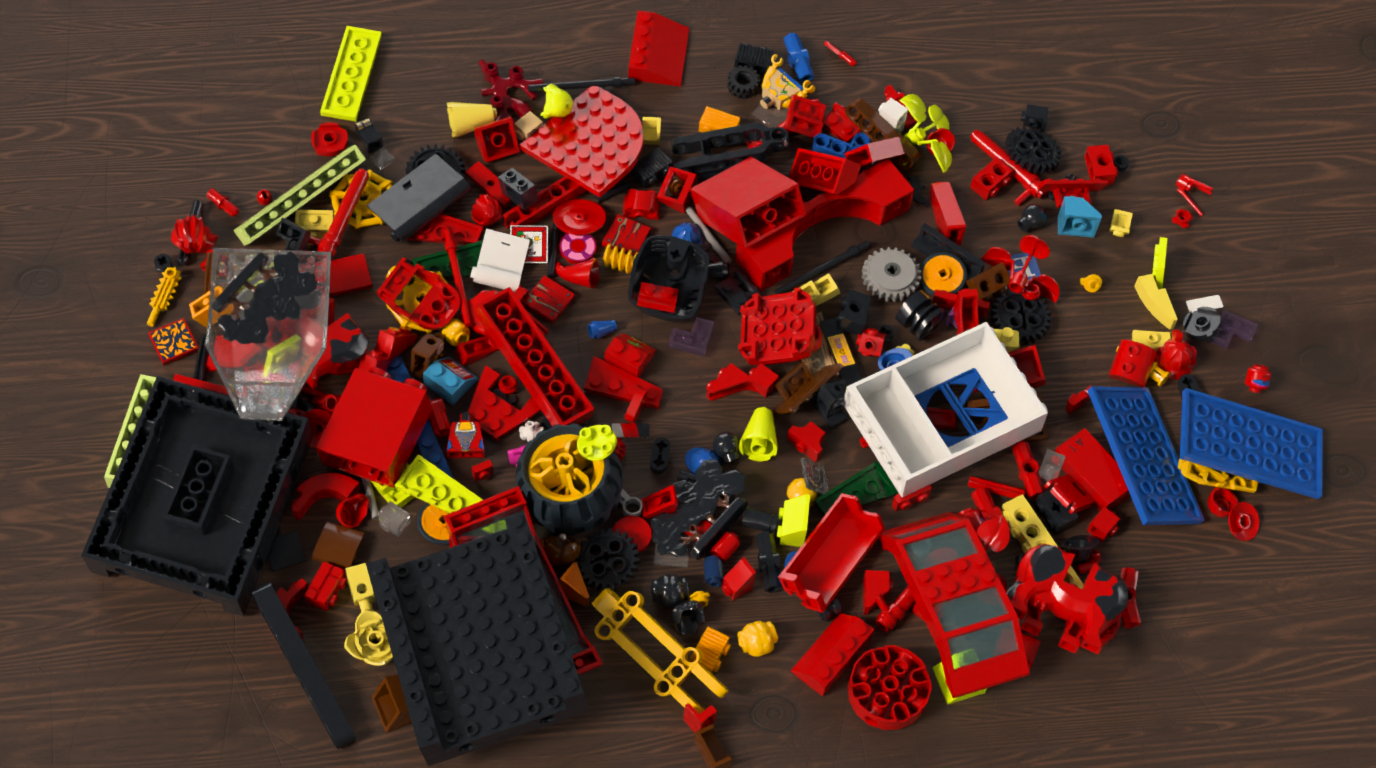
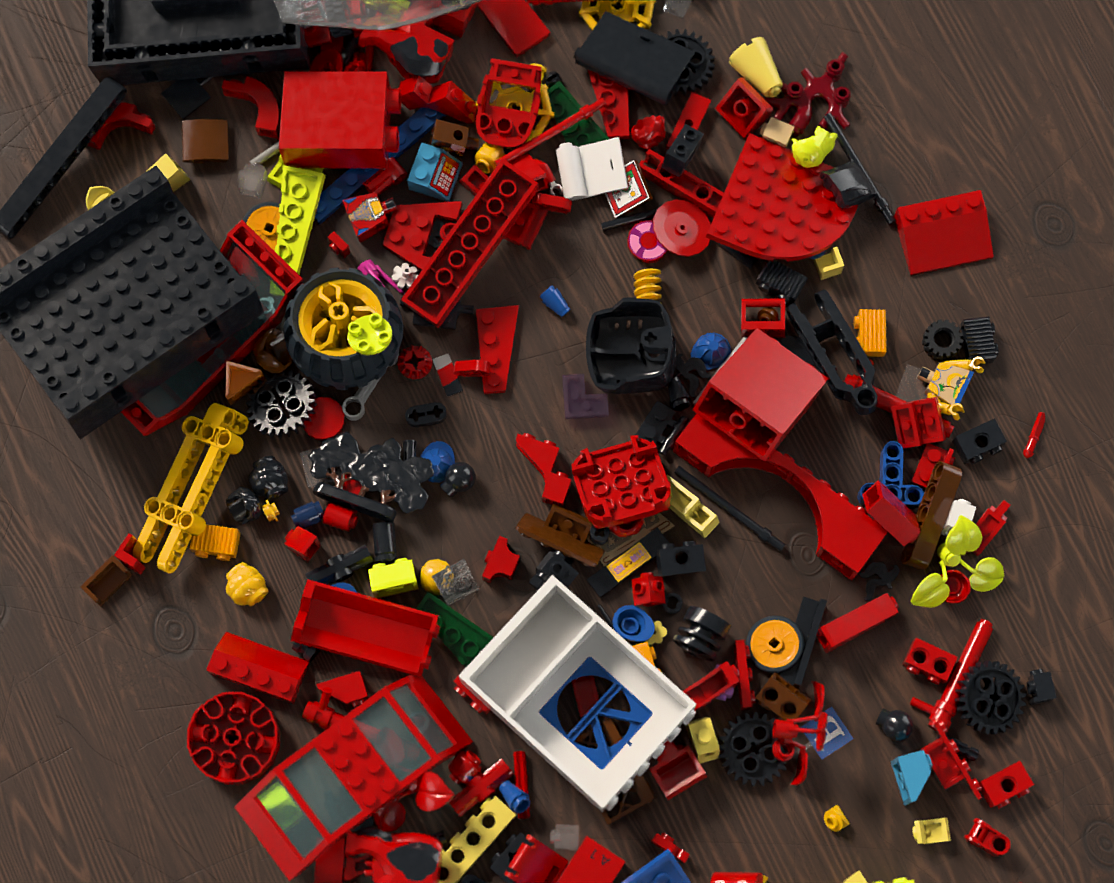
camera: 75 degrees right, 15 degrees up
(325, 586) = (152, 145): red brick -> none
(352, 510) = (246, 139): red hair -> none
(548, 299) = (571, 235): red tile -> none
(581, 274) = (612, 258): red hat -> none
(595, 91) = (848, 184): none -> black slope
(626, 234) = (683, 286): red tile -> none
(629, 354) = (535, 340): red slope -> none
(641, 204) = (729, 288): red cylinder -> none
(657, 297) = (606, 342): red plate -> none
(660, 502) = (364, 432): red slope -> none
(759, 437) = (486, 508): neon yellow cone -> none
(798, 57) = (1003, 389): blue piece -> none
(813, 361) = (599, 540): none -> black bush
(823, 171) = (842, 464): red slope -> none
(833, 86) = (987, 432): none -> black brick
(891, 274) = (742, 599): light grey gear -> none
(1007, 491) = (515, 797): none -> blue cone
(1025, 460) = (566, 805): red piece -> none
(1123, 161) = (1026, 808): black plate -> none
(1135, 192) = (986, 838): none -> red piece

